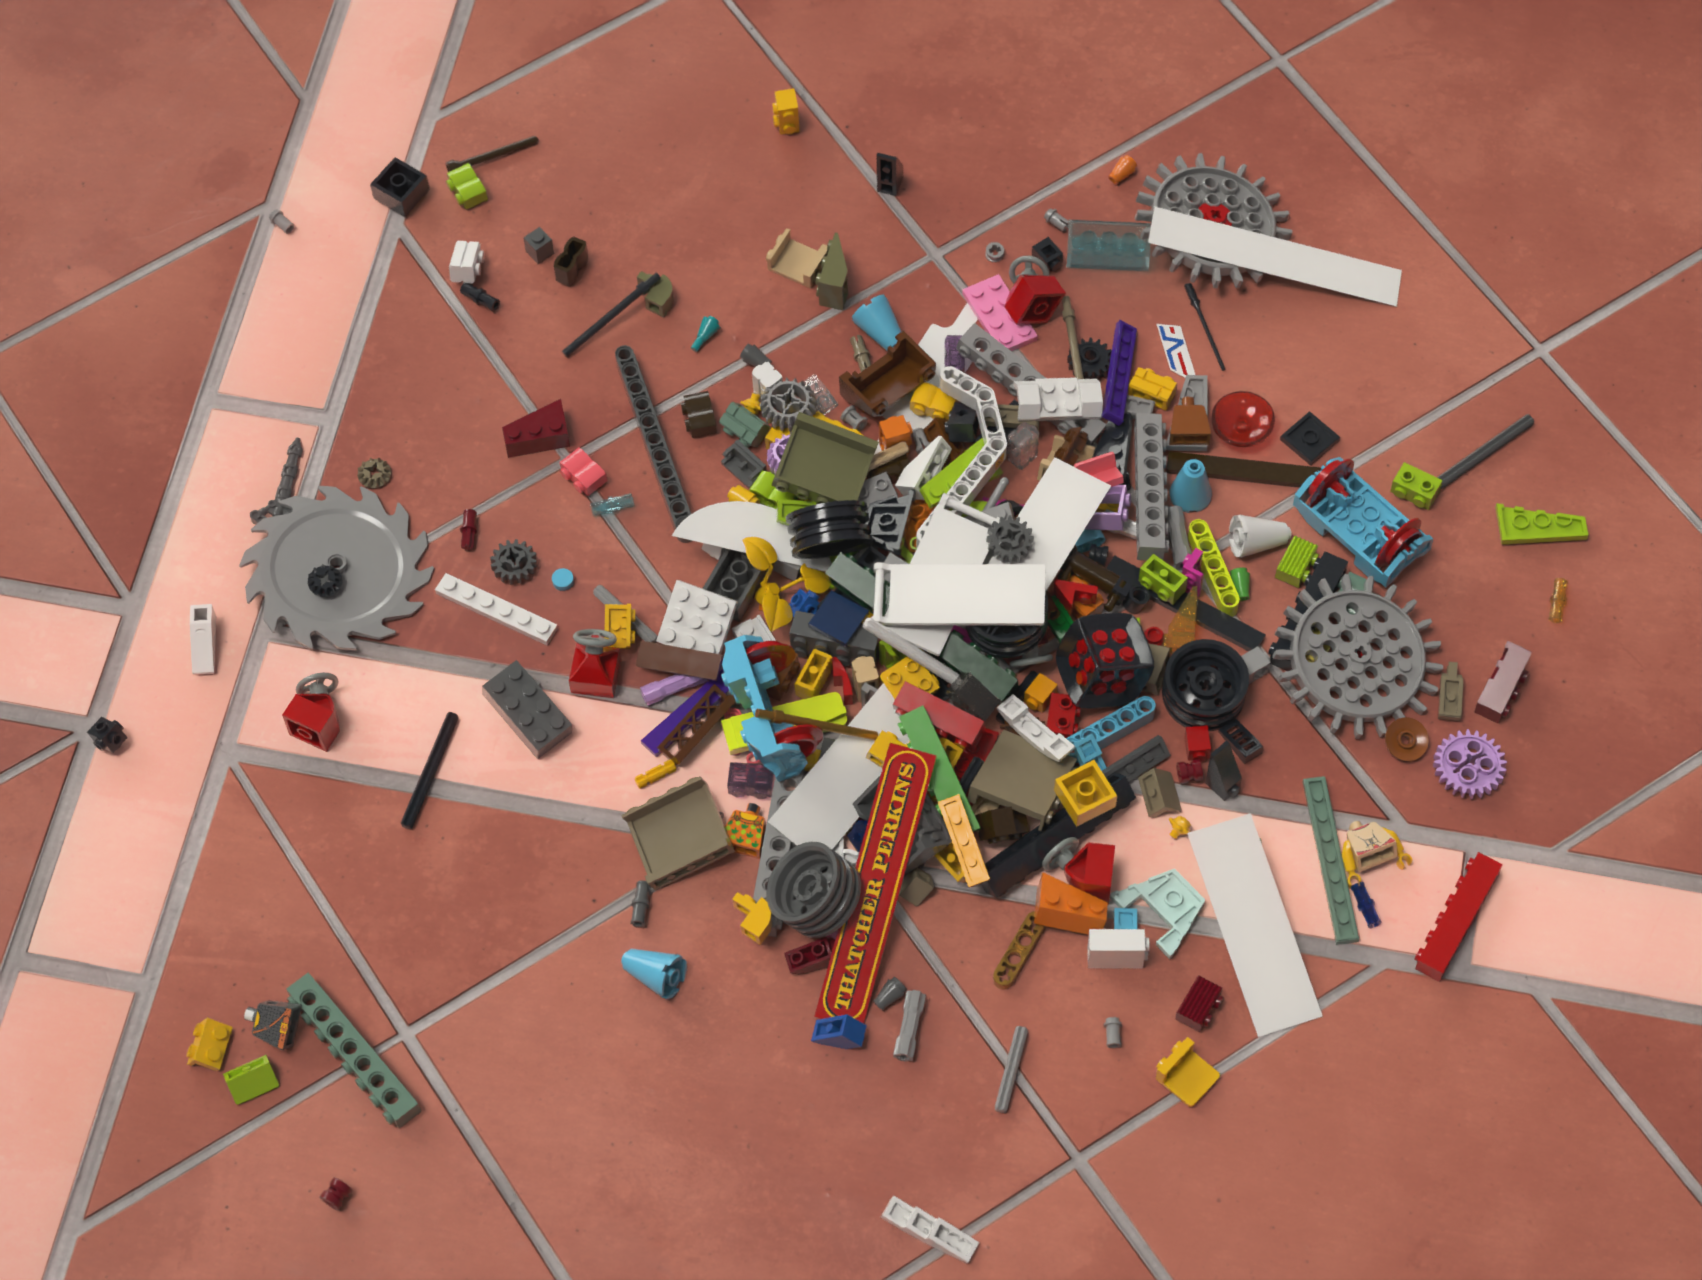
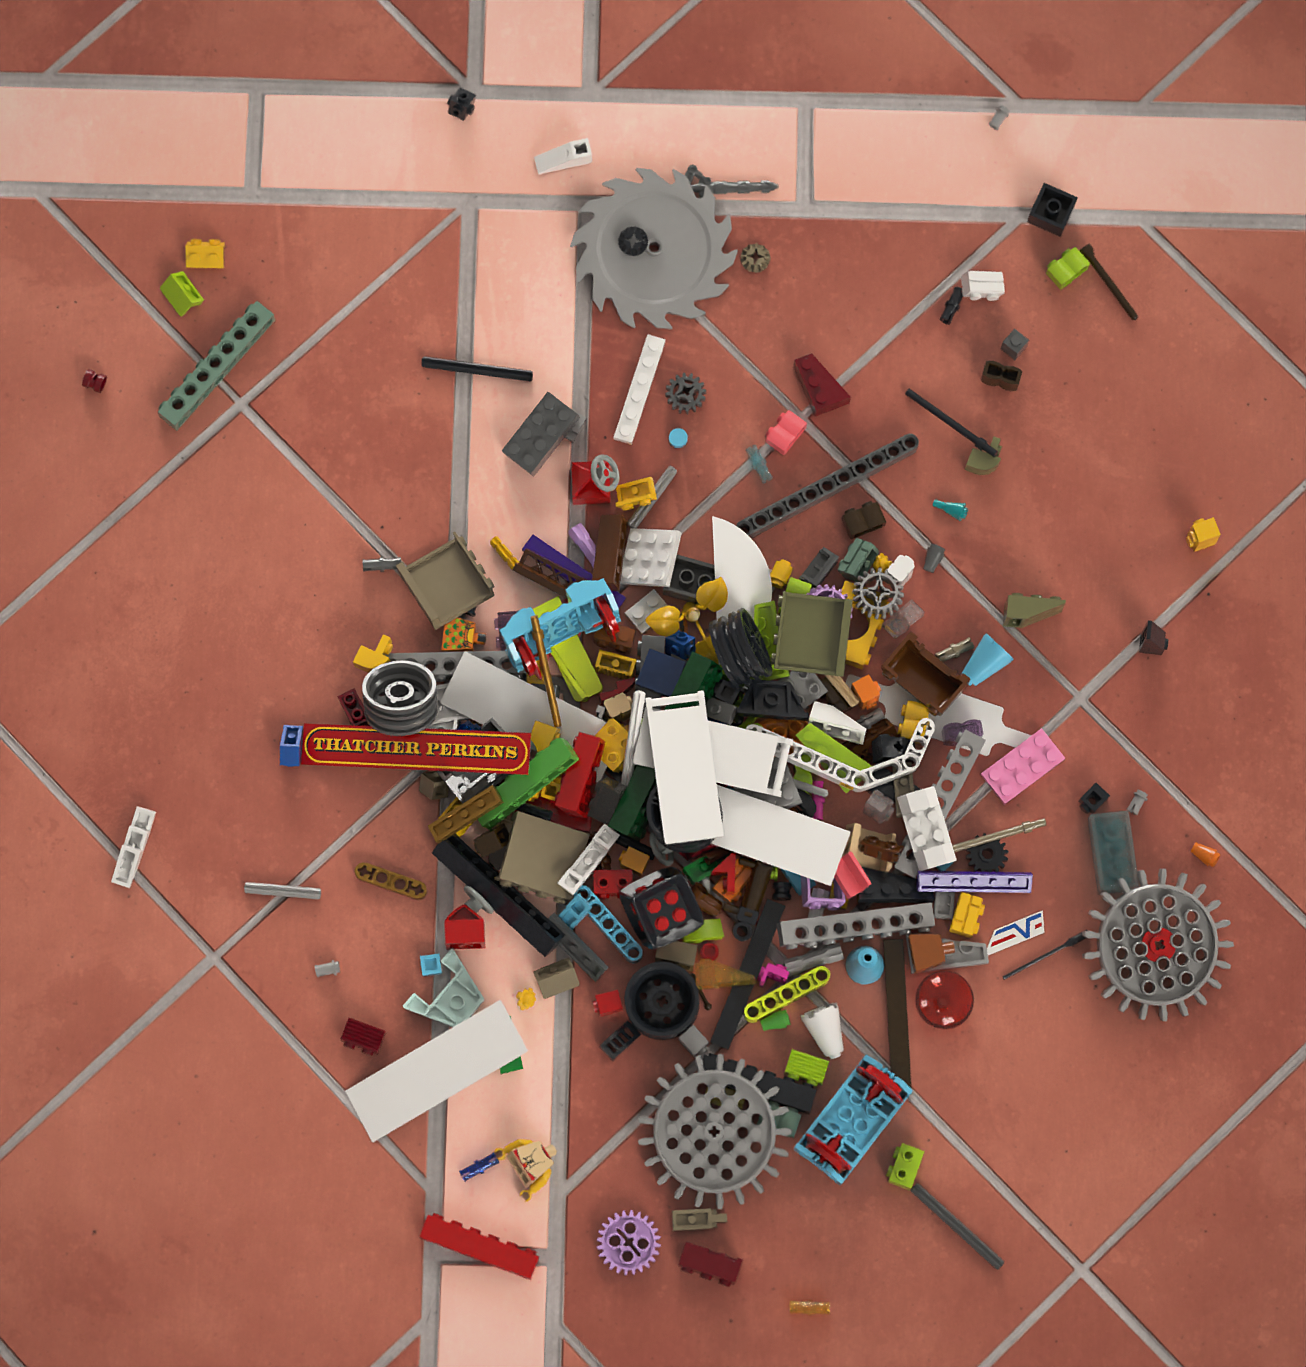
camera: 75 degrees right, 15 degrees up
(275, 1022) = (227, 299): dark grey torso -> none
(313, 714) = (505, 266): red piece -> none
(468, 529) = (711, 349): dark red axle -> none
(656, 970) = (320, 587): medium azure cone -> none
(795, 260) = (1047, 573): tan panel -> none
(854, 418) = (883, 654): light grey bush -> none
(890, 993) = (334, 781): dark grey cone -> none
(906, 1041) = (291, 801): light grey axle -> none
(994, 246) = (1093, 746): light grey bush -> none
(1006, 547) = (766, 799): dark grey gear -> none
(1032, 295) = (1041, 791): red piece -> none
(1067, 907) = (429, 913): orange wedge -> none
(1085, 793) = (526, 908): yellow brick -> none
(1117, 948) = (397, 959): white brick -> none
(1162, 579) = (761, 947): lime brick -> none
(1186, 1073) = (298, 1034): yellow bracket -> none
(1189, 771) = (580, 1000): dark red wheel -> none
(1223, 772) = (576, 1028): black slope -> none
(1275, 256) = (1127, 1007): white sticker -> none
(1310, 438) = (942, 1065): black tile -> none
(1330, 860) = (524, 1129): sand green tile -> none
(1415, 734) = (633, 1184): dark orange dish -> none
(1536, 526) = (884, 1279): lime wing -> none

